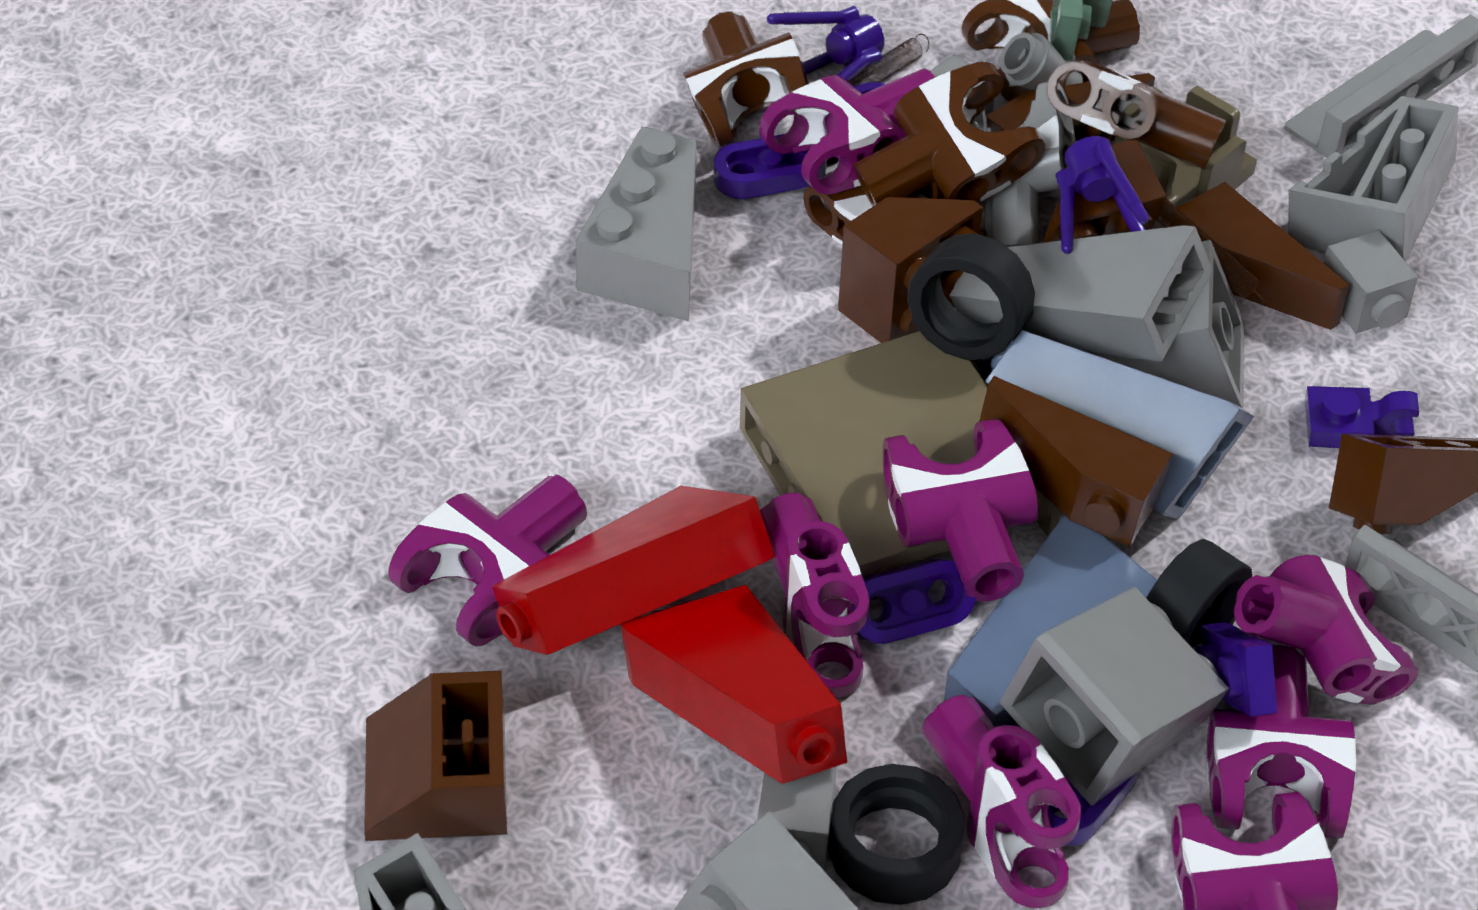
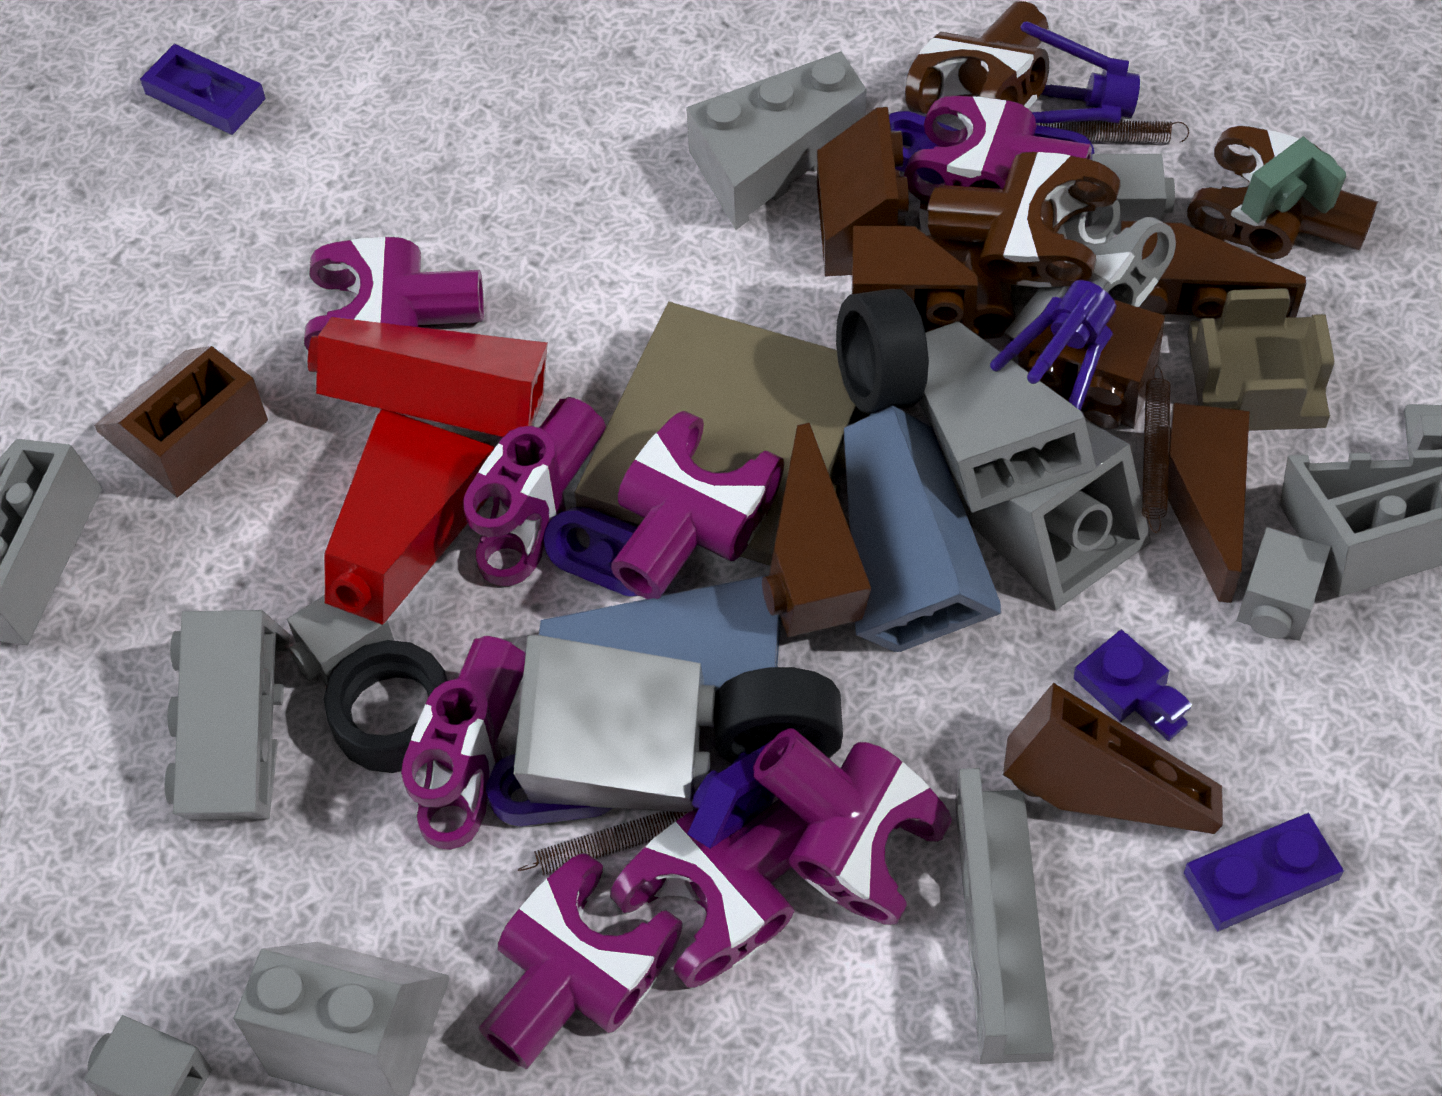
camera: 50 degrees right, 10 degrees up
(94, 513) = (203, 89): none -> dark purple plate
(781, 220) = (859, 186): none -> reddish brown slope
(1031, 60) = (1211, 207): light grey cone -> none
(1162, 120) = (1210, 288): reddish brown connector -> none
(1175, 797) = (520, 869): none -> reddish brown piece

